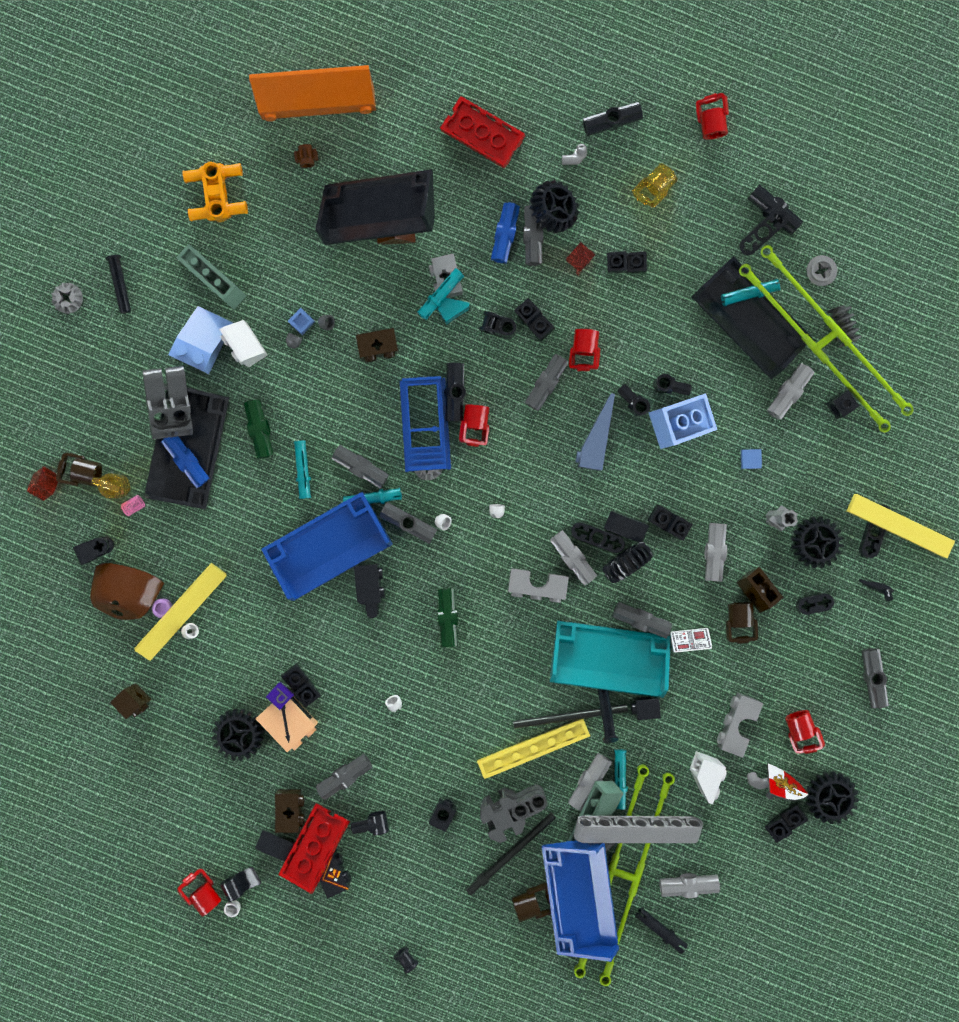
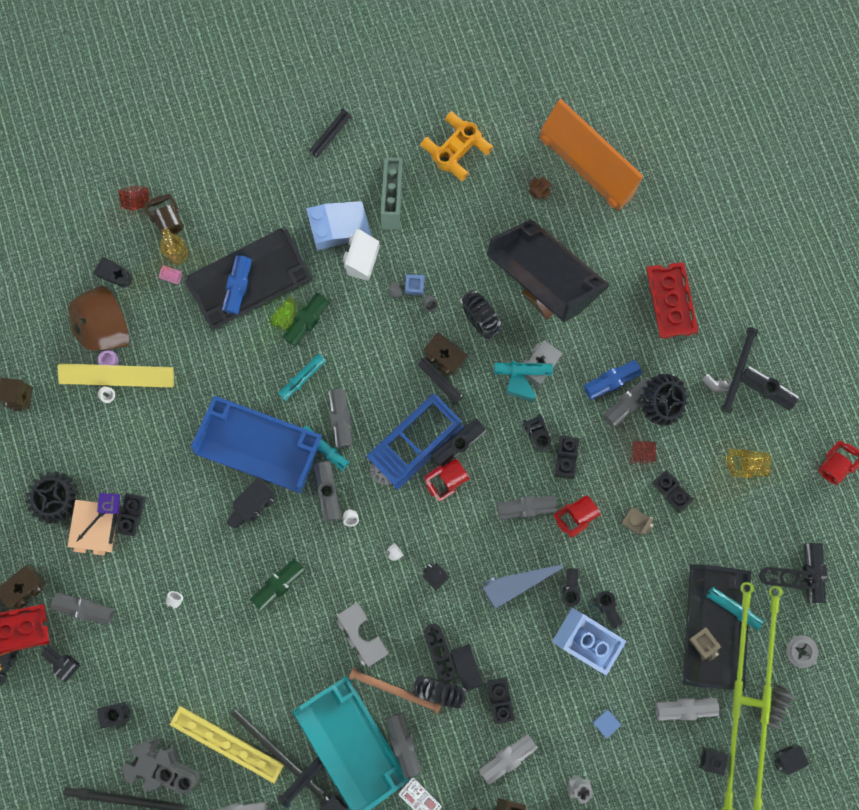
camera: 45 degrees right, 10 degrees down
(75, 297) = (293, 111): light grey gear -> none
(177, 400) = (272, 217): dark grey connector -> none
(241, 442) = (284, 315): none -> clear neon green brick
(369, 290) = (480, 314): none -> black gear
(394, 365) = (431, 371): none -> black axle
(540, 494) = (435, 576): none -> black brick
(559, 93) = (751, 333): none -> black bar
(573, 557) = (407, 645): light grey piece -> none
(595, 595) = (393, 690): none -> nougat bar
(627, 308) = (638, 522): none -> dark tan bracket
(758, 337) = (705, 644): none -> dark tan bracket
(888, 347) = (790, 759): none -> black brick

